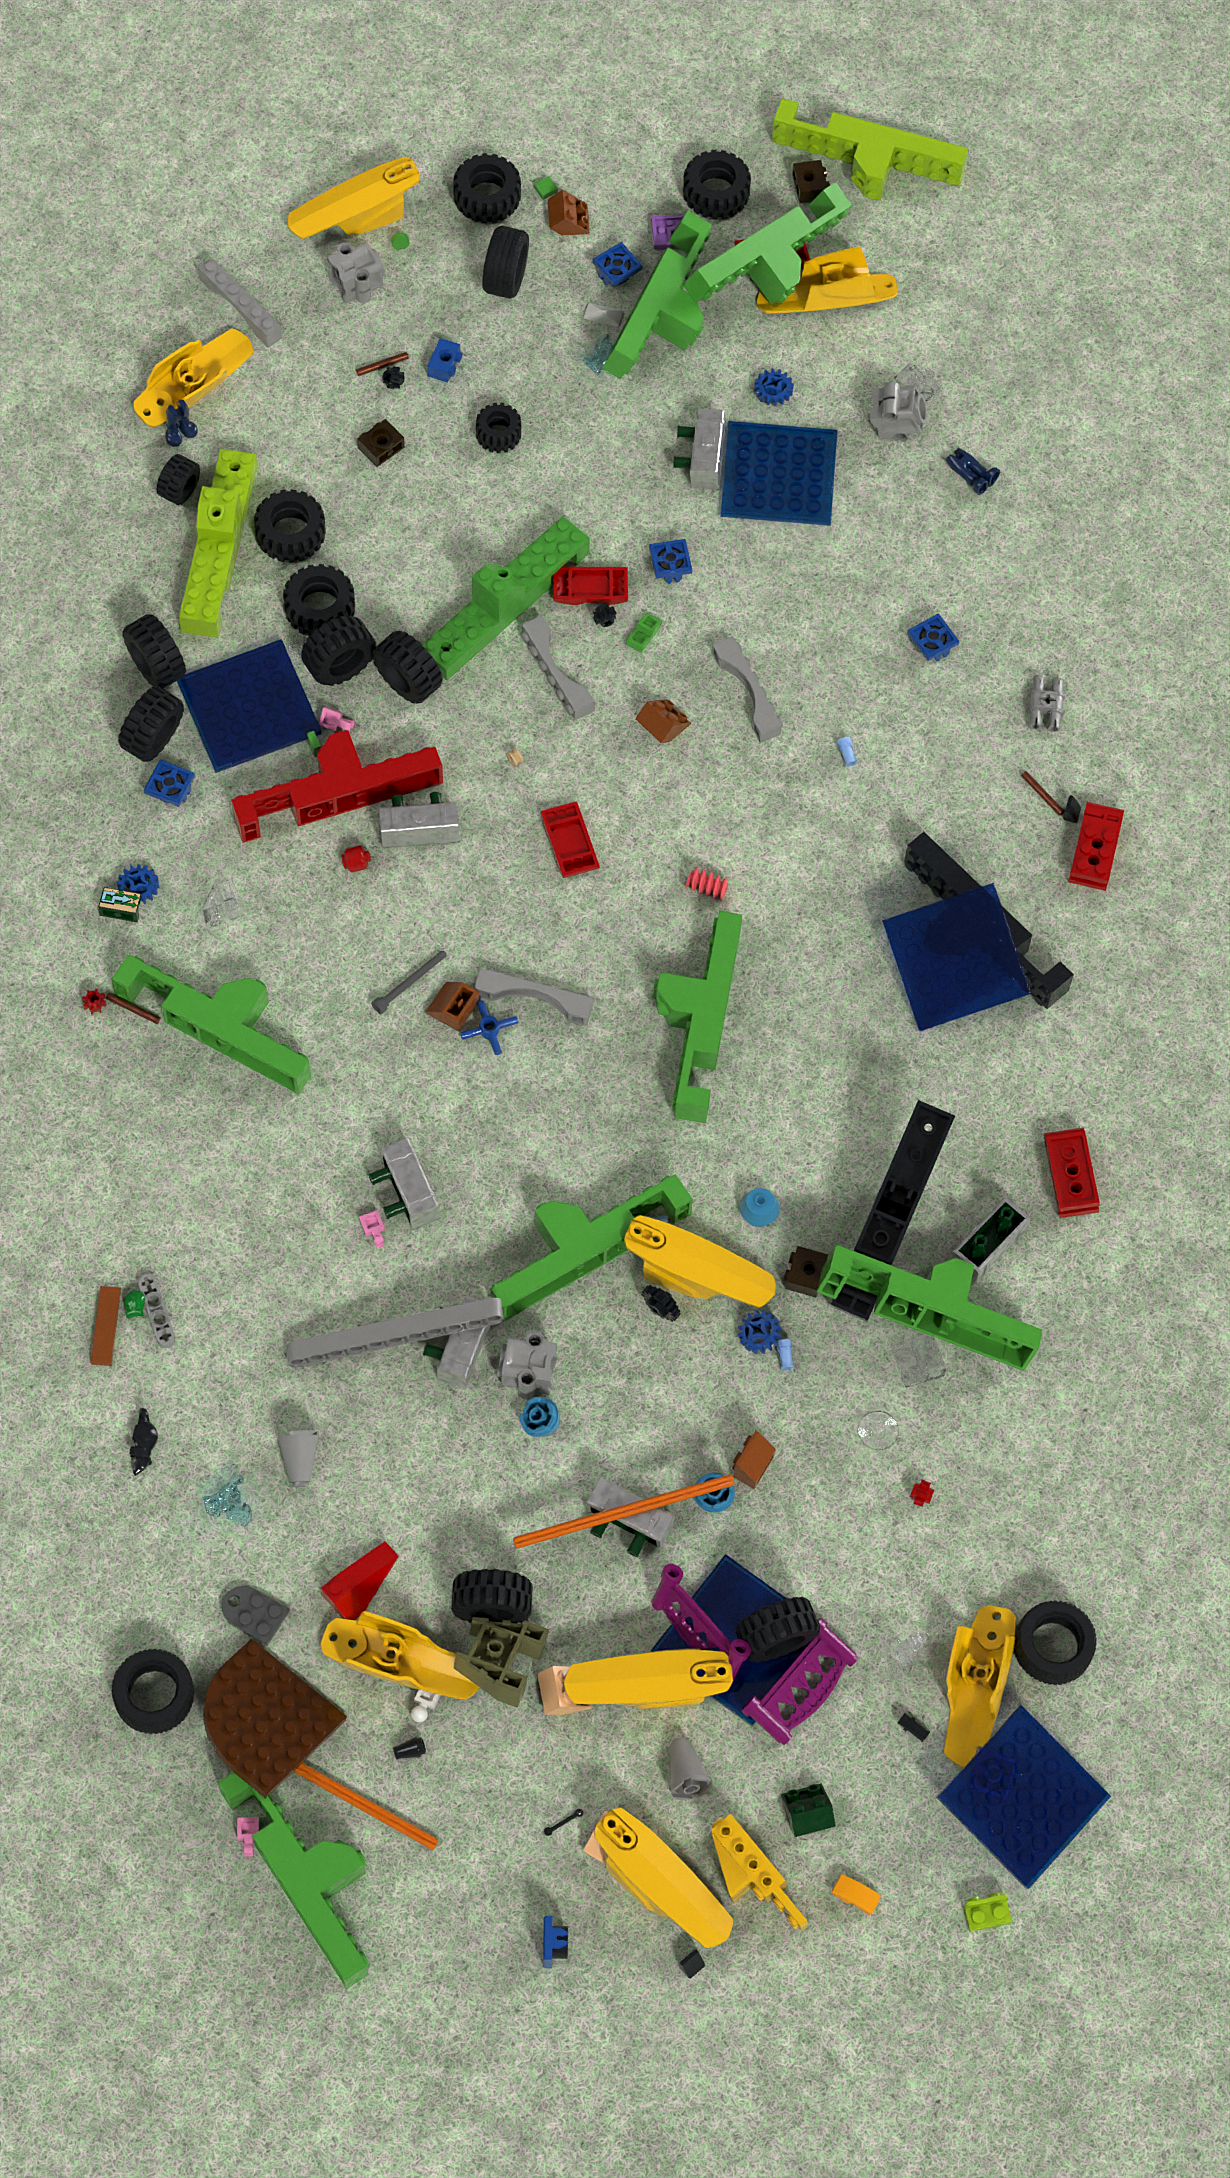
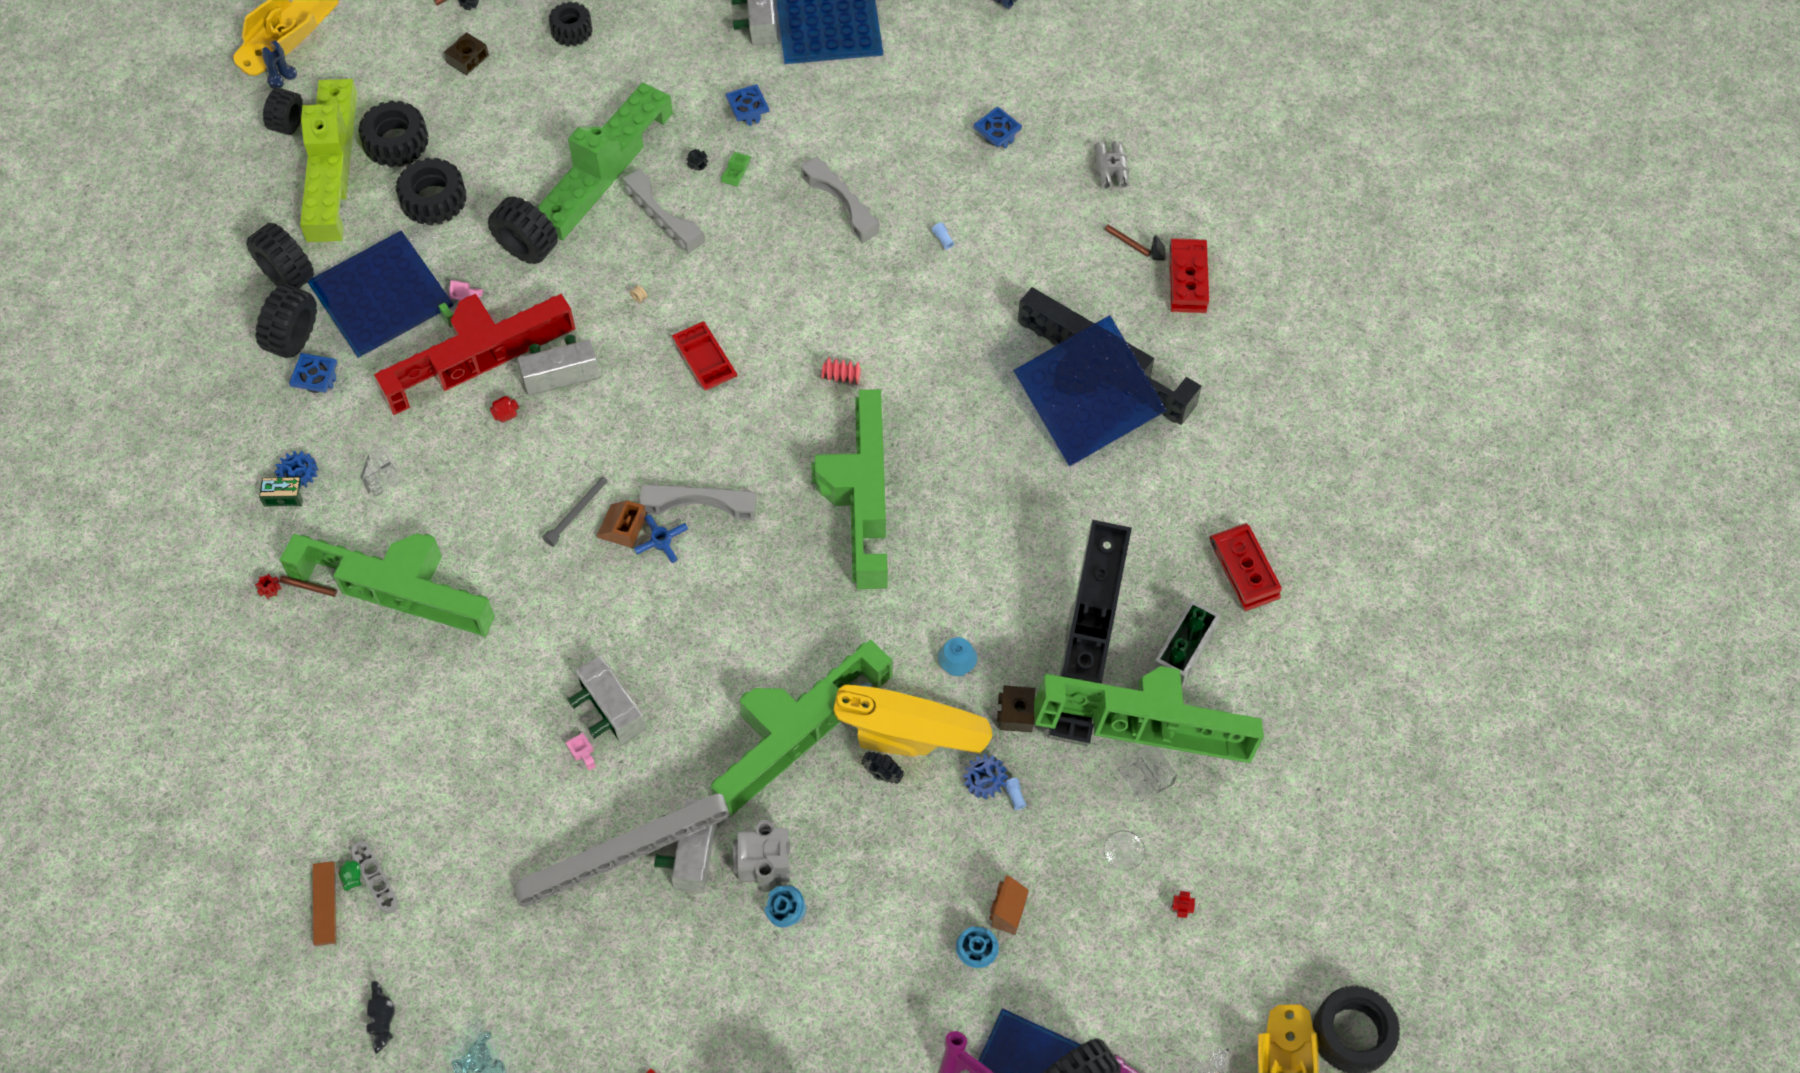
camera: 10 degrees left, 5 degrees down
(299, 1455) = (545, 996): light grey cone -> none
(338, 650) = (455, 227): black tyre -> none
(590, 585) = (679, 137): red slope -> none
(623, 1511) = (890, 986): orange axle -> none
(646, 1526) = (896, 986): flat silver piece -> none
(662, 720) = (768, 238): dark orange slope -> none

